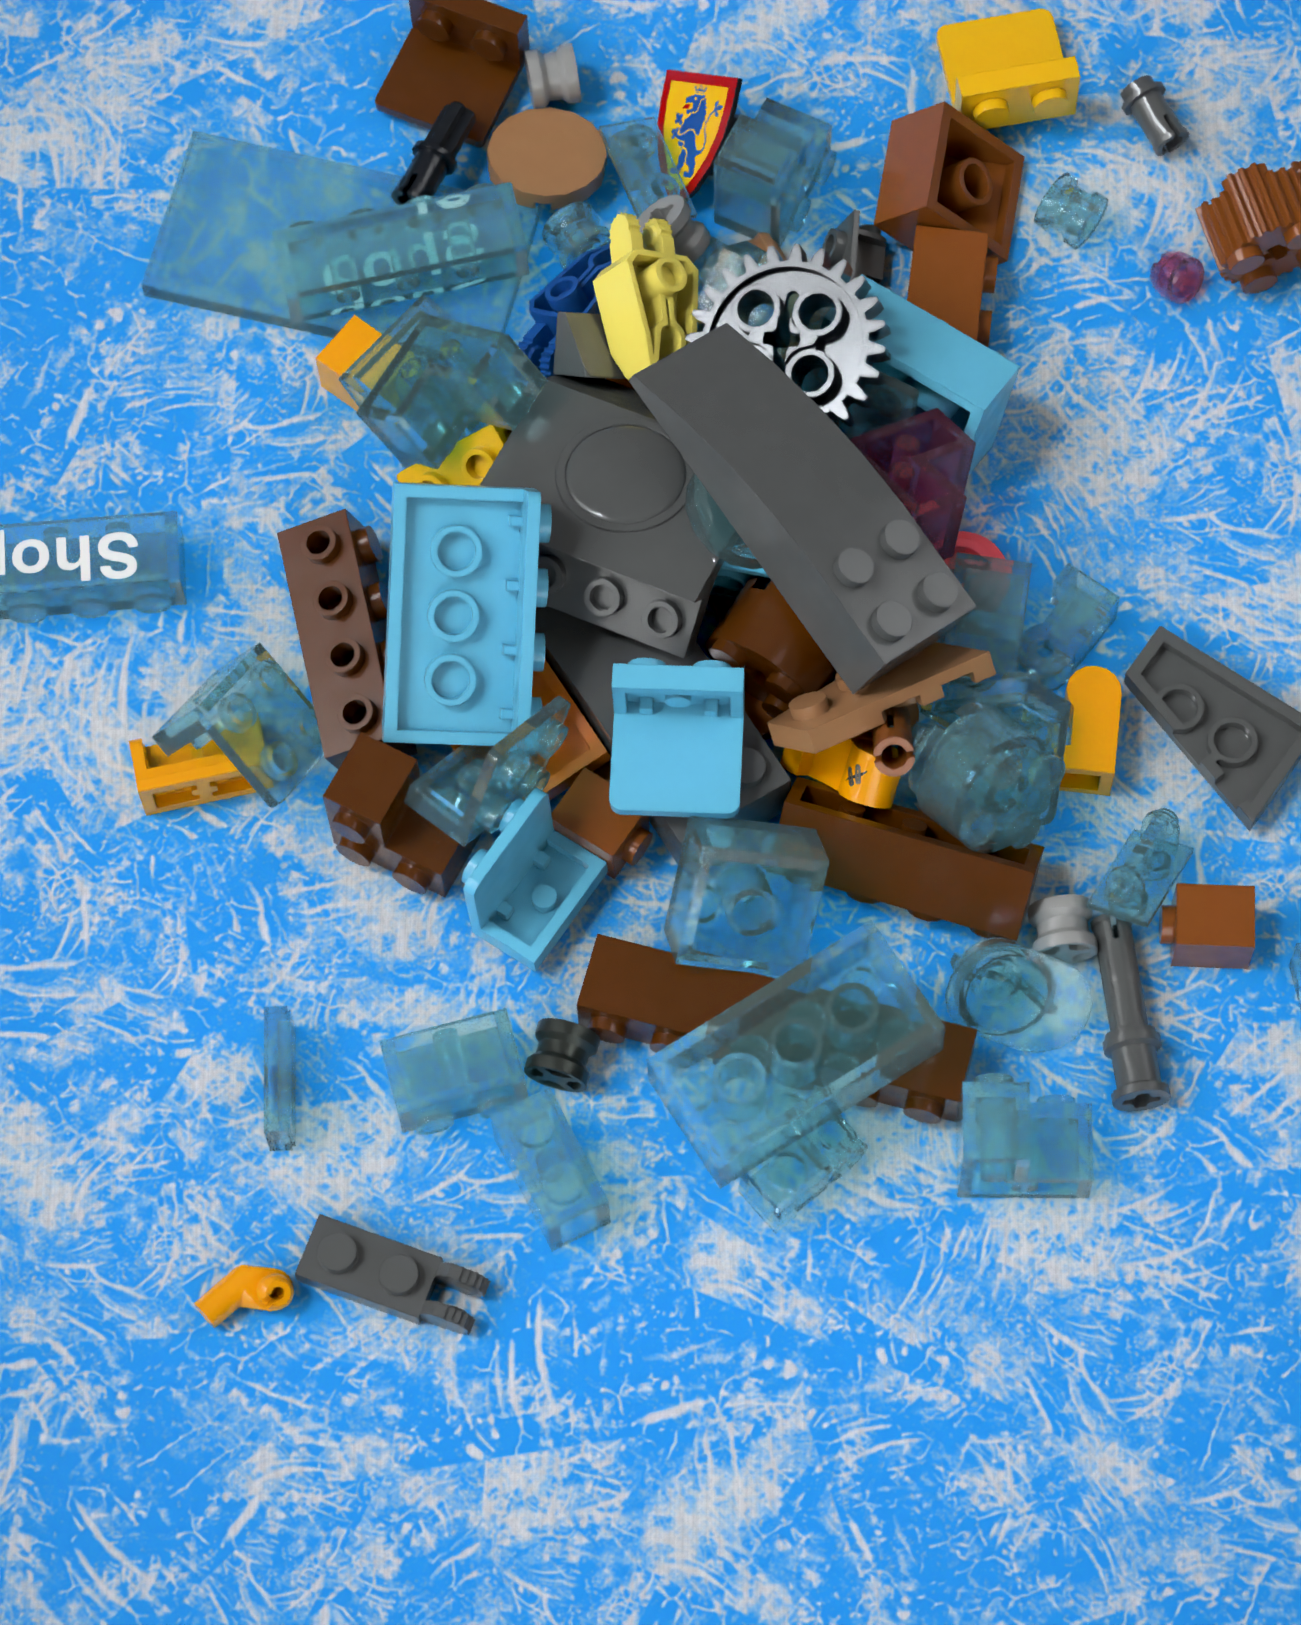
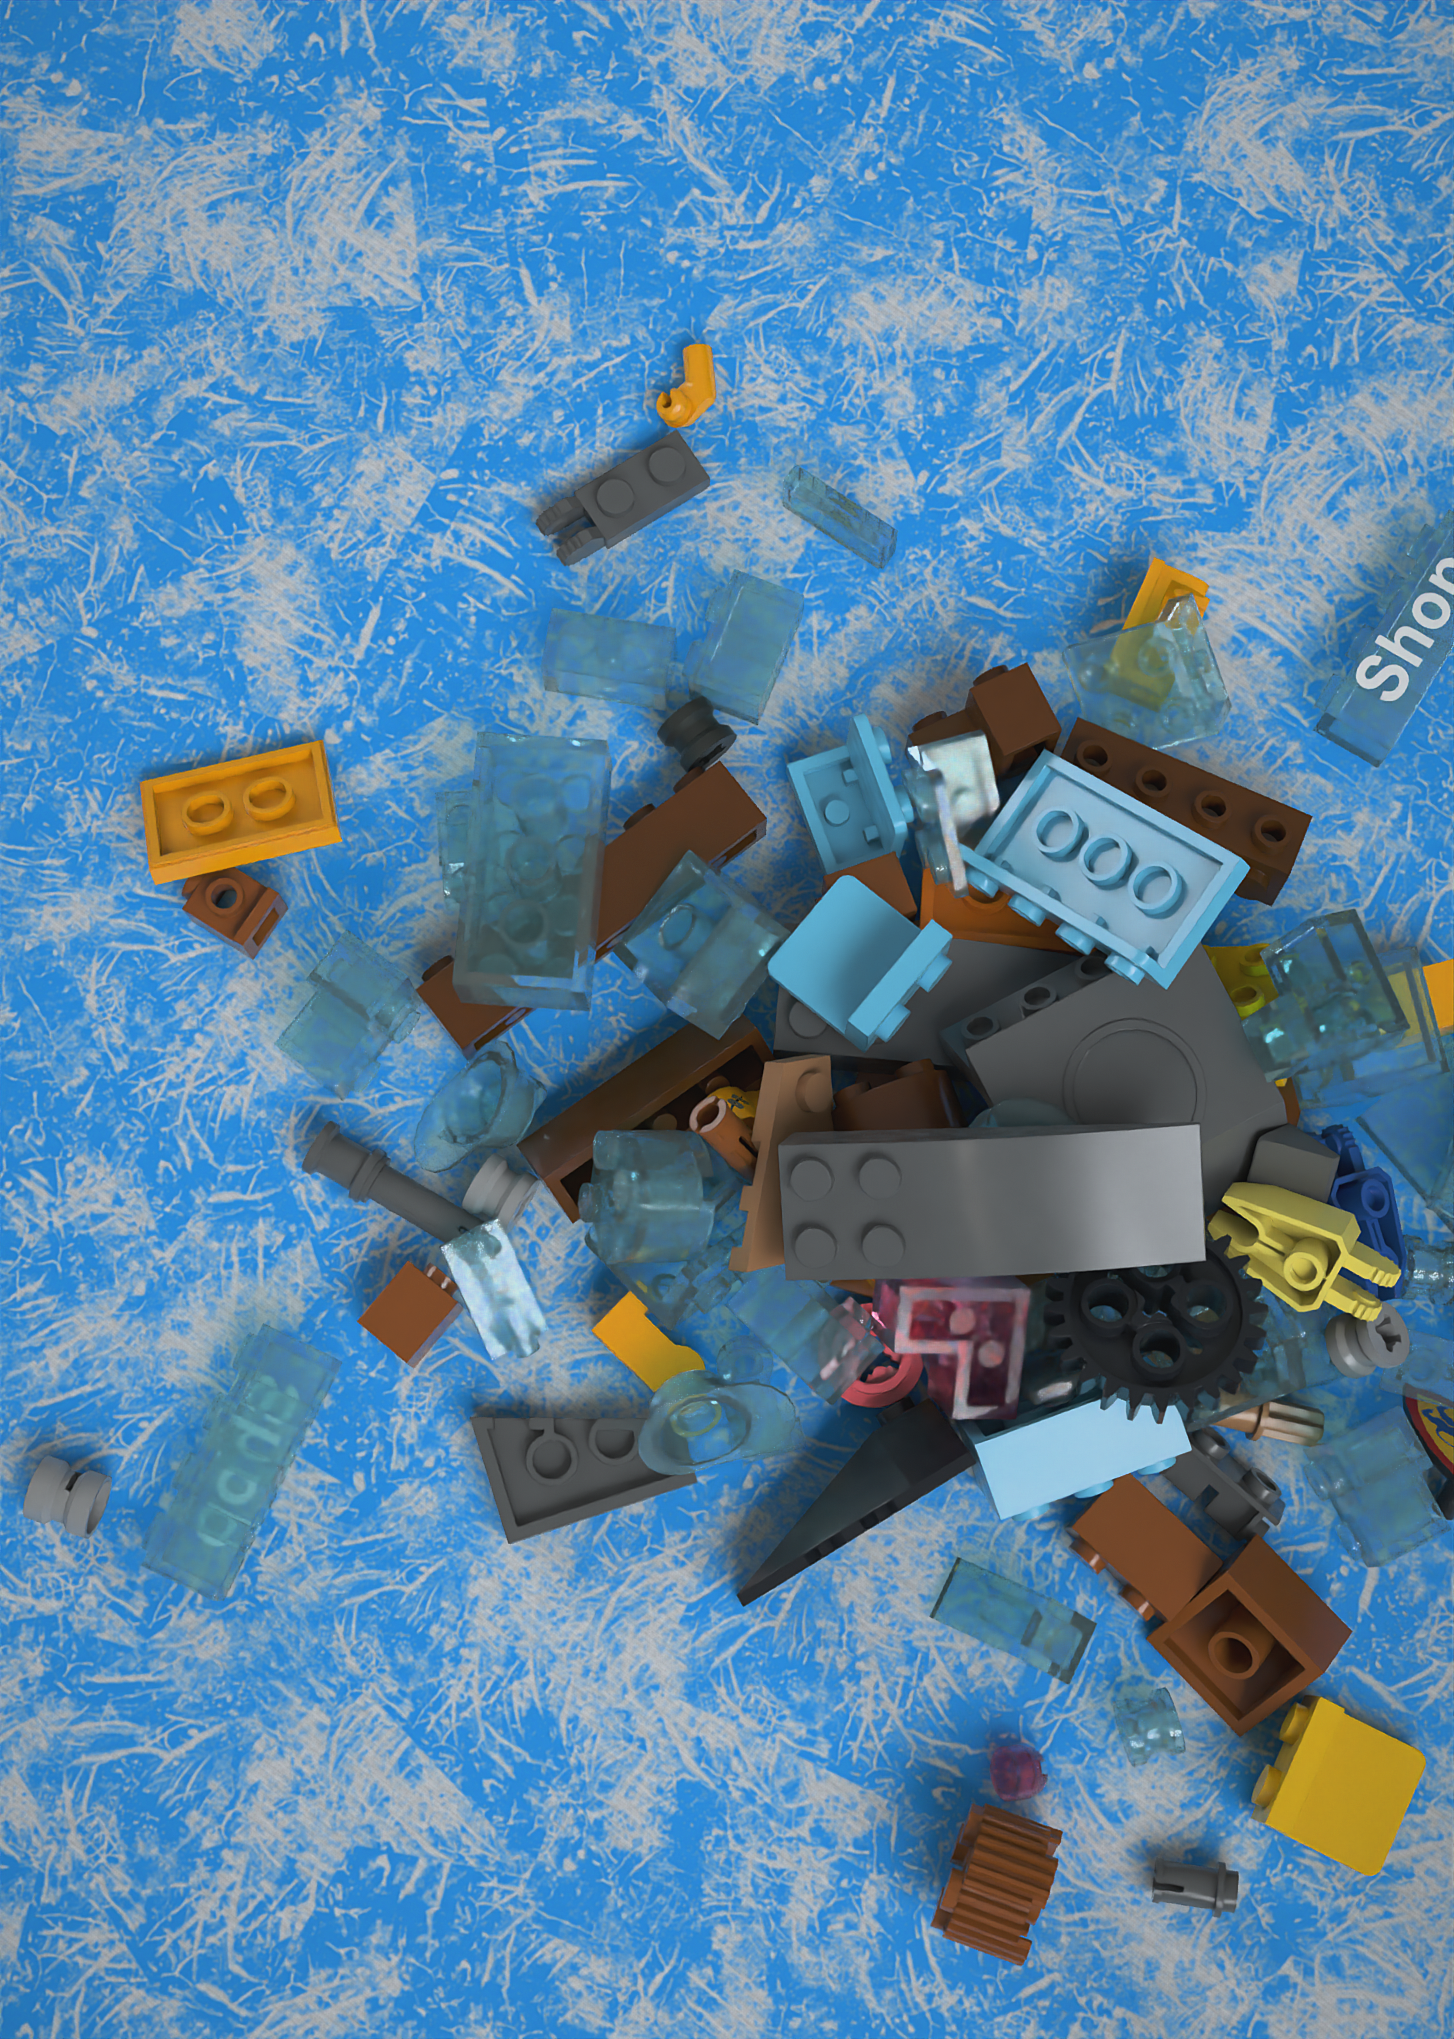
camera: 125 degrees right, 10 degrees up
(920, 1372) = (239, 812): none -> light orange tile
(1003, 1292) = (247, 921): none -> dark orange brick
(1046, 496) = (888, 1472): none -> black wedge
(1074, 347) = (1013, 1620): none -> clear light blue slope
(1110, 635) = (711, 1421): none -> clear light blue piece

